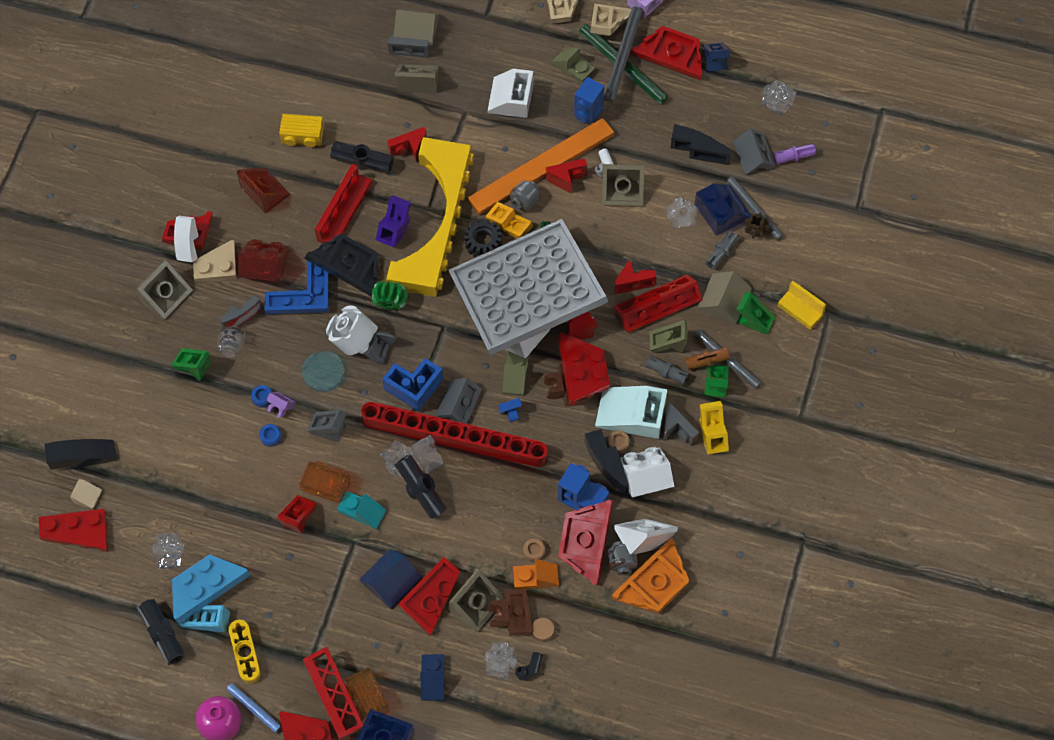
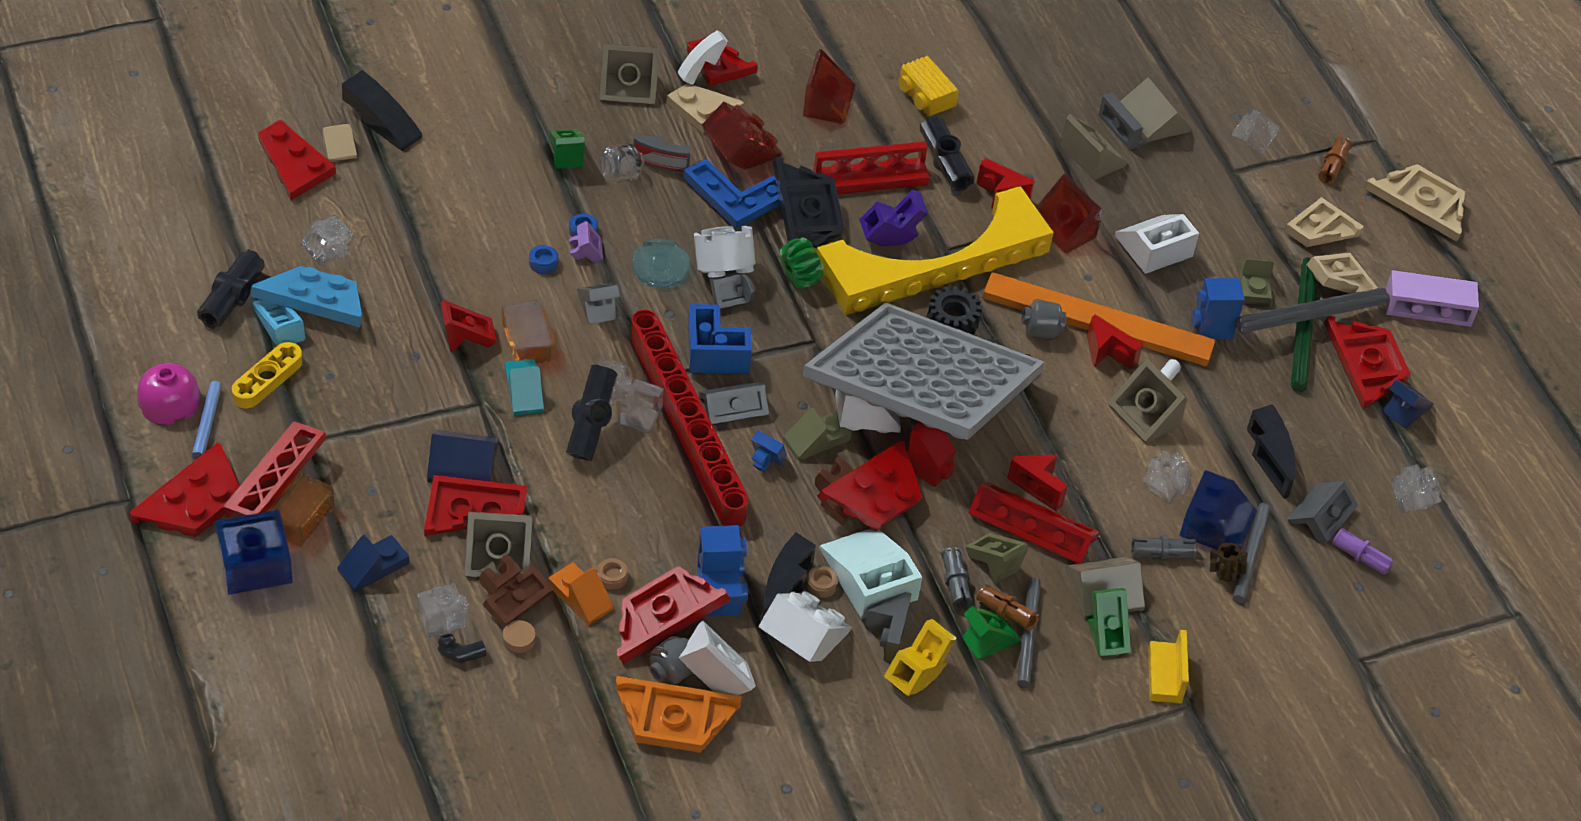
camera: 45 degrees right, 15 degrees down
(459, 125) = (1070, 214): none -> clear red slope
(509, 221) = (1001, 323): light orange slope -> none

